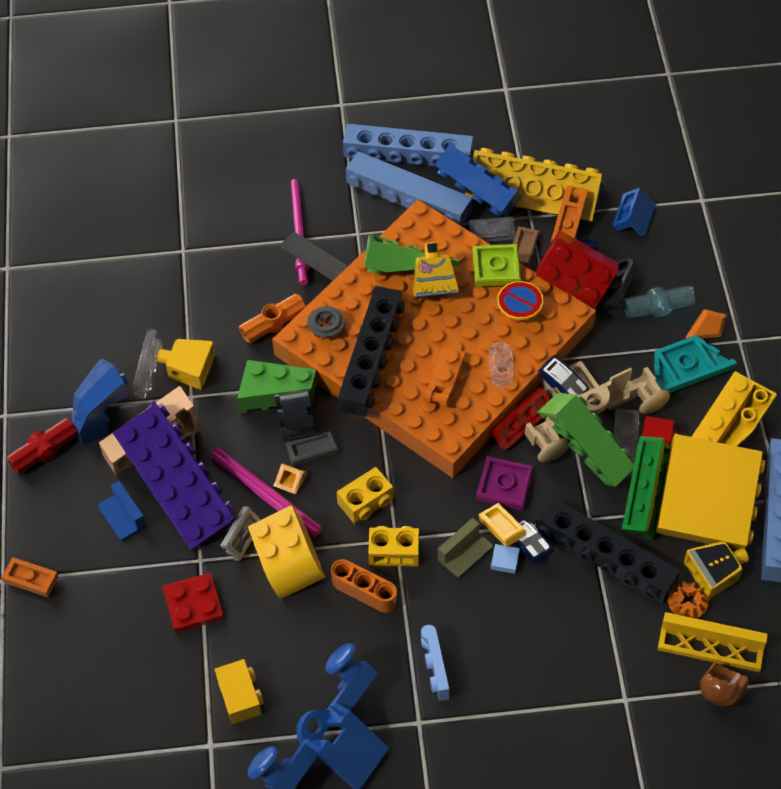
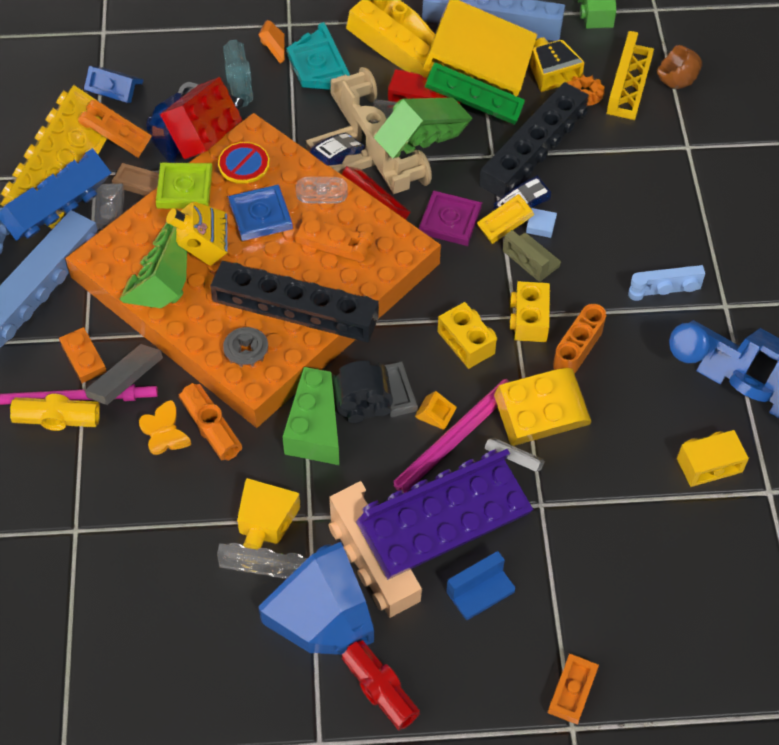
camera: 90 degrees left, 0 degrees up
(193, 602) = (599, 509): red plate -> none
(263, 290) = (162, 429): none -> light orange animal
(280, 219) = (55, 412): none -> yellow piece
(338, 232) = (82, 355): none -> orange plate
(471, 321) = (260, 212): none -> blue tile

